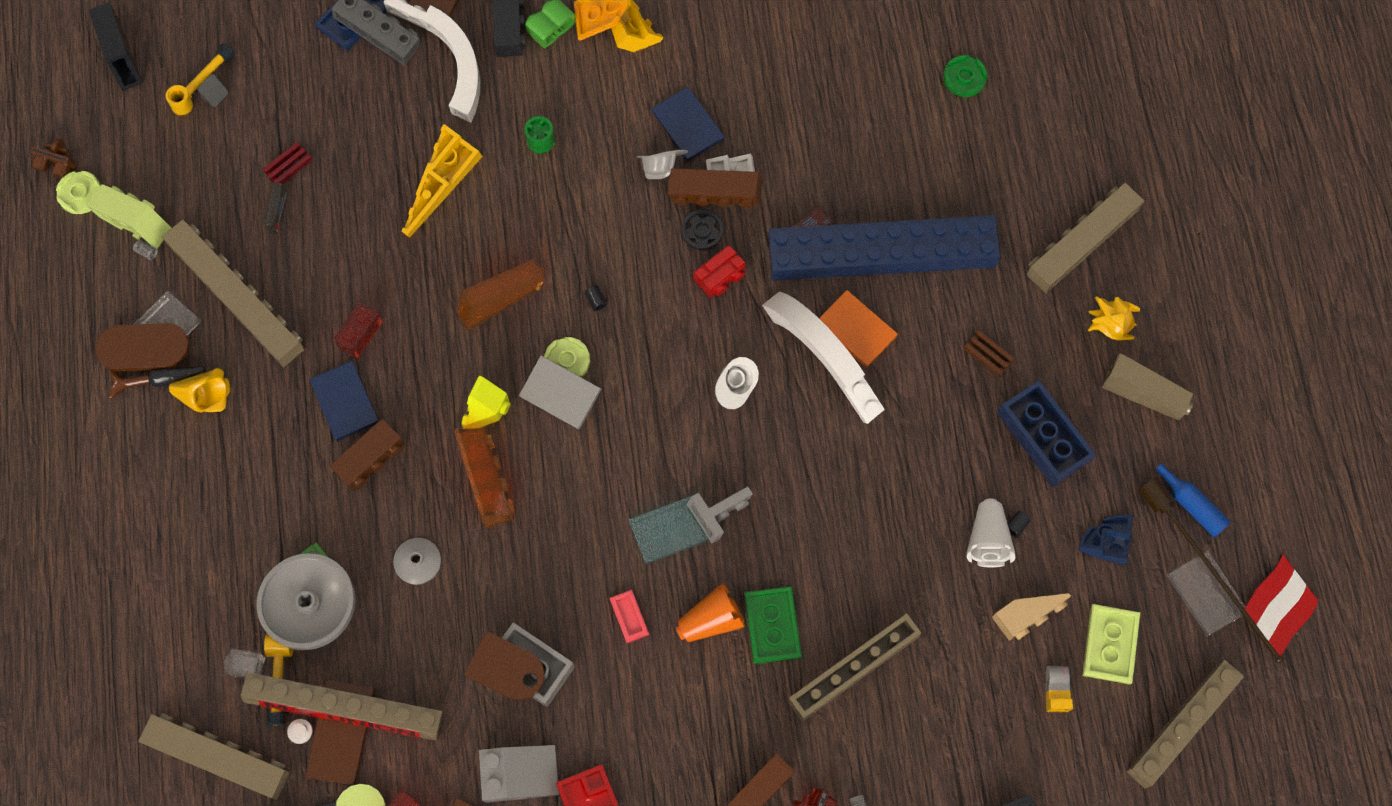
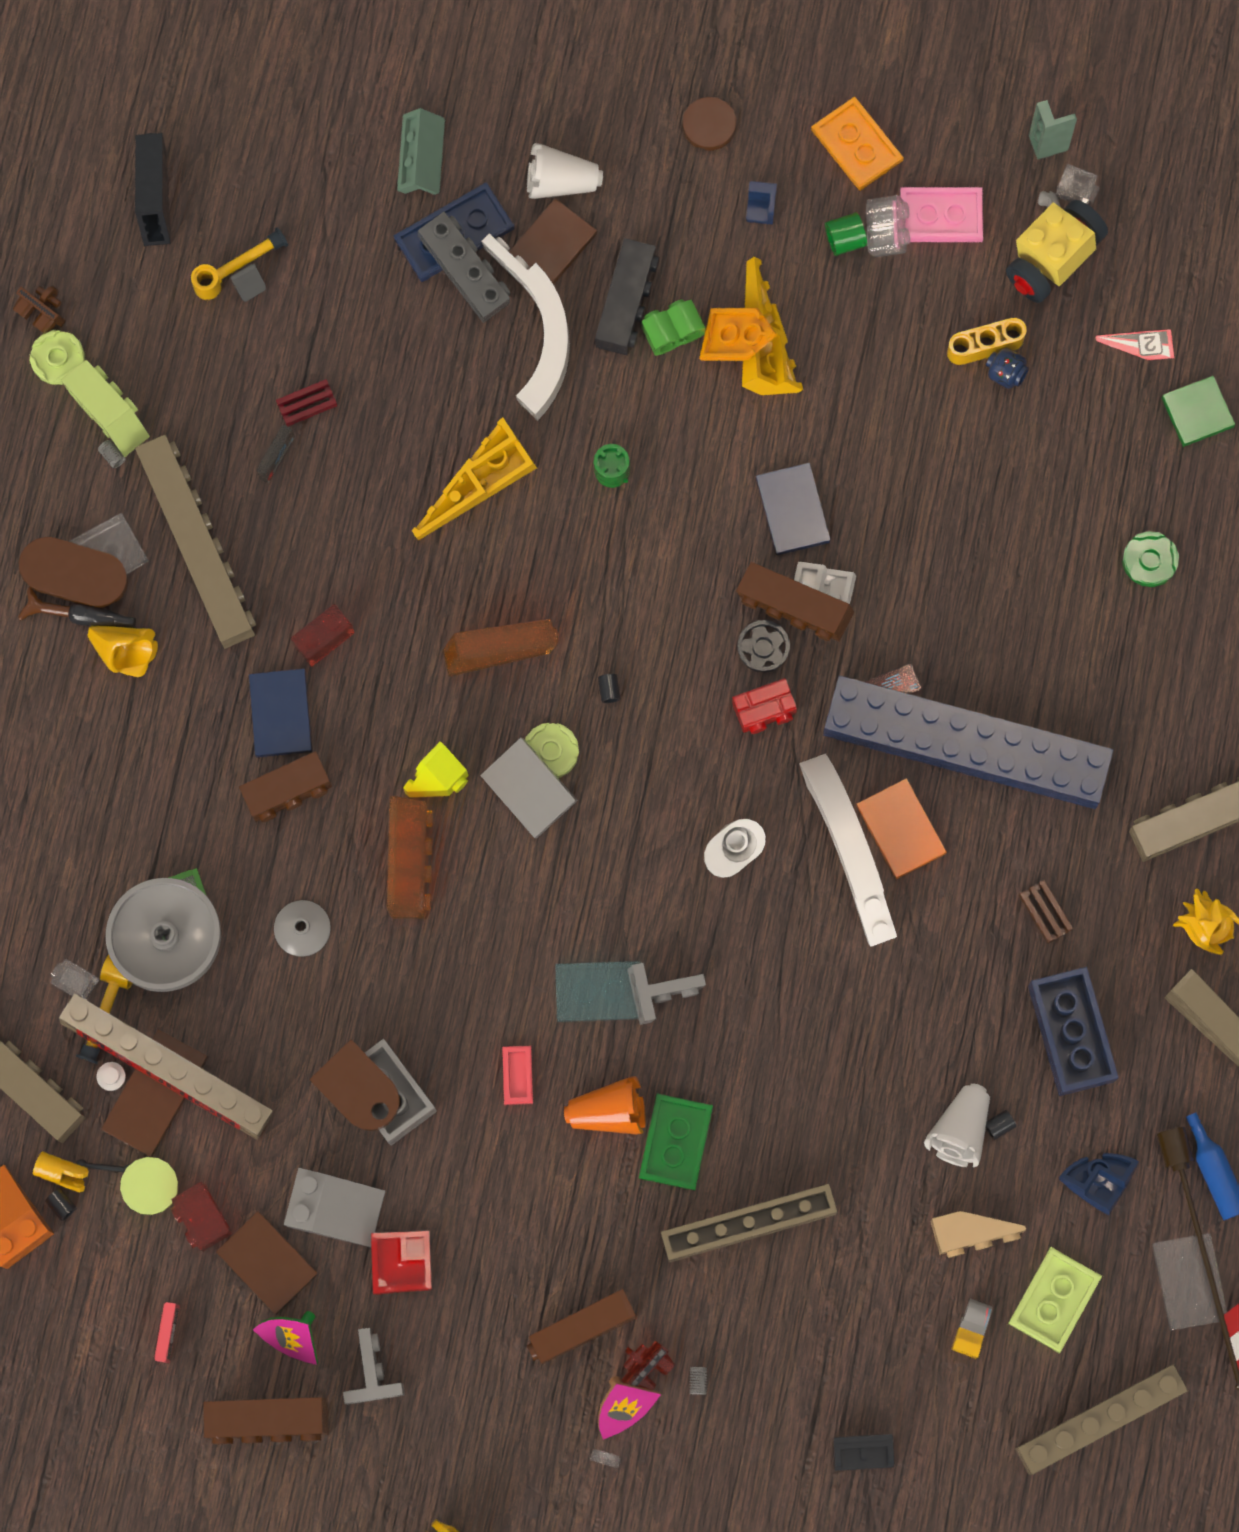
camera: 25 degrees right, 5 degrees up
(660, 165) = (738, 551): light grey piece -> none

